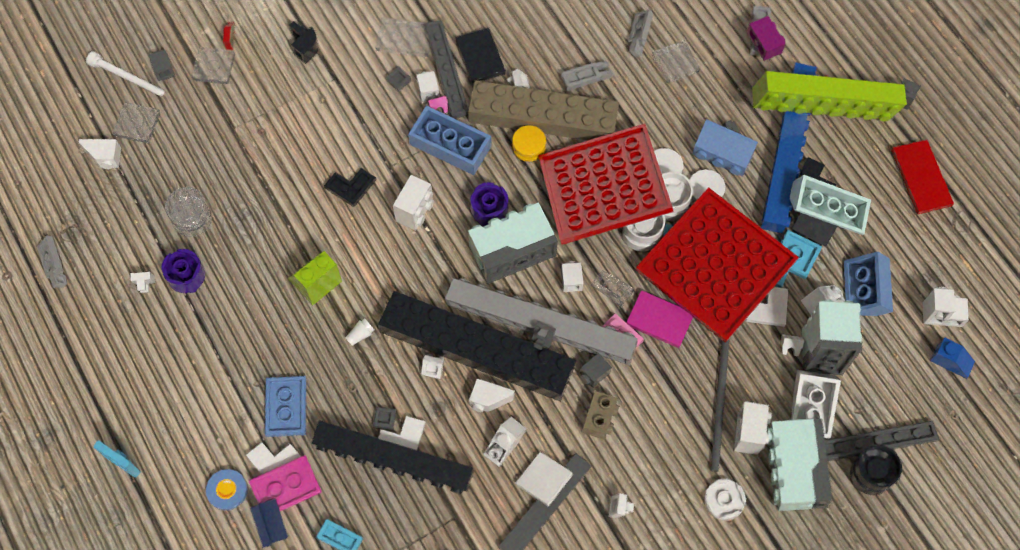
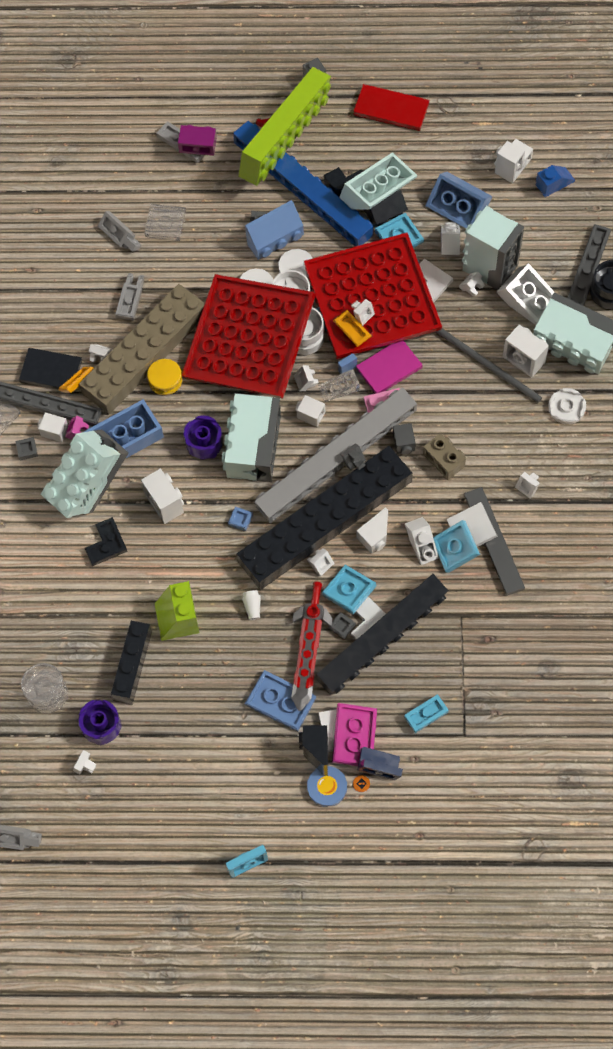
camera: 55 degrees left, 0 degrees up
(245, 518) = (361, 783): none -> orange sticker
(247, 458) = (315, 746): none -> black slope
(250, 266) = (131, 662): none -> black brick
(378, 388) = (308, 646): none -> sword
(389, 128) = (84, 473): none -> light aqua piece
(421, 404) = (349, 589): none -> medium azure plate
(435, 278) = (240, 519): none -> medium blue tile
(472, 76) = (71, 384): none -> light orange tile
(515, 474) = (455, 546): none -> medium azure plate
(599, 255) = (305, 379): none -> white tile
(637, 281) = (347, 363): none -> medium blue tile
(669, 264) = (352, 328): none -> light orange tile
(690, 263) = (363, 311): none -> white tile

